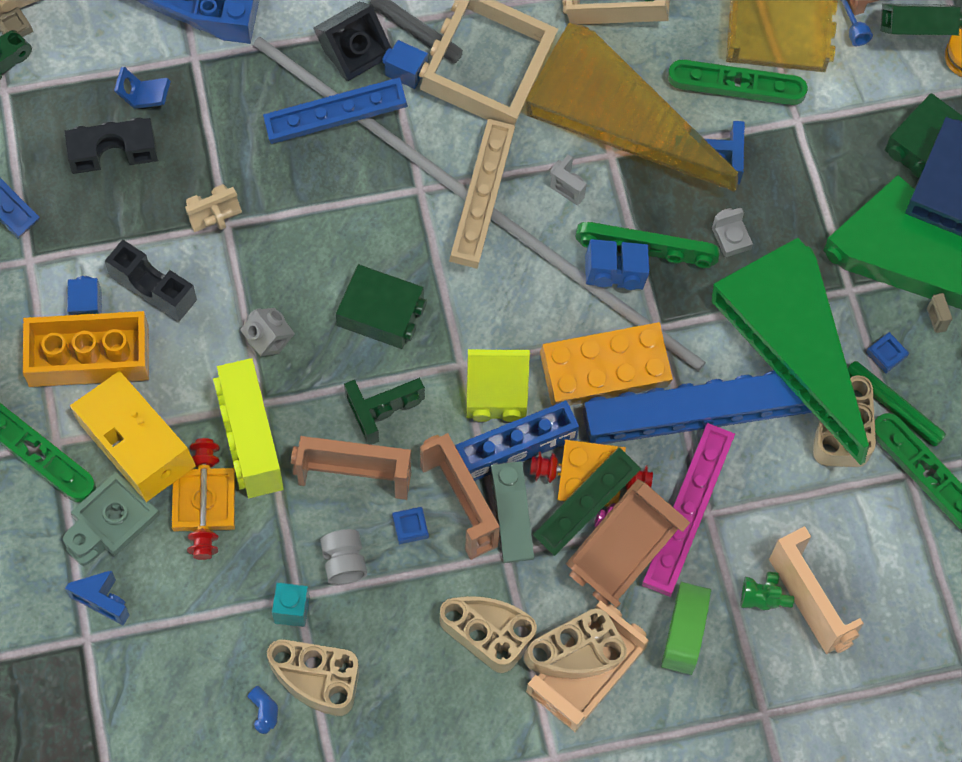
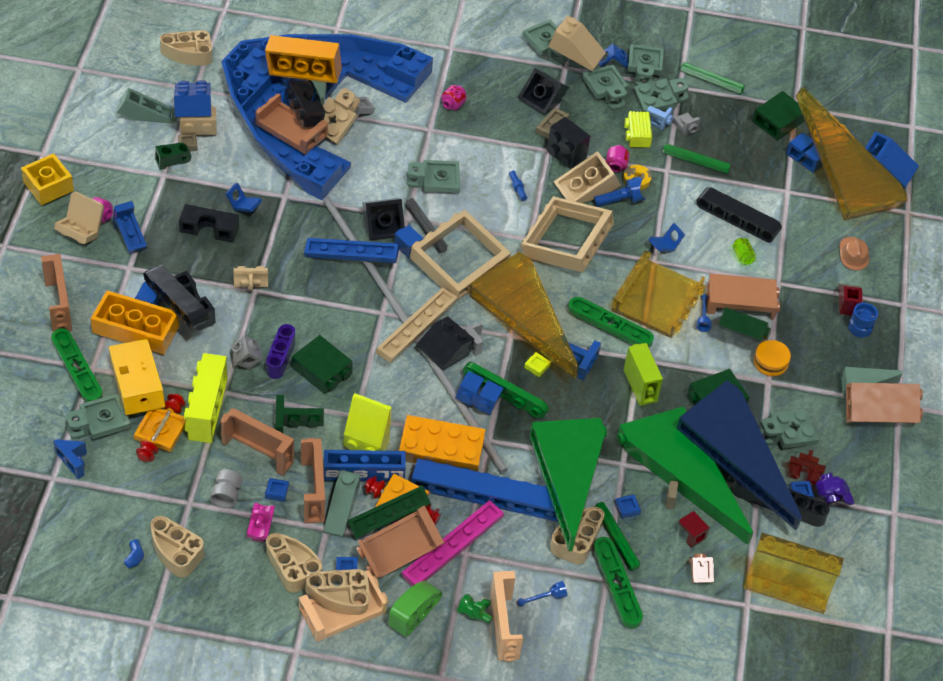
camera: 20 degrees right, 15 degrees down
(131, 290) = (176, 296): none -> black beam
(290, 604) = (180, 502): teal brick -> none
(313, 321) = (280, 351): none -> dark purple beam
(416, 587) = (260, 522): none -> dark pink hips
(535, 205) = (446, 342): none -> black slope
(564, 605) = (346, 563): none -> blue plate
(669, 185) = (537, 364): none -> neon yellow tile
(731, 232) = (562, 402): light grey bracket -> none
(822, 147) = (643, 374): none -> lime brick
(857, 519) = (557, 590): none -> blue hinge

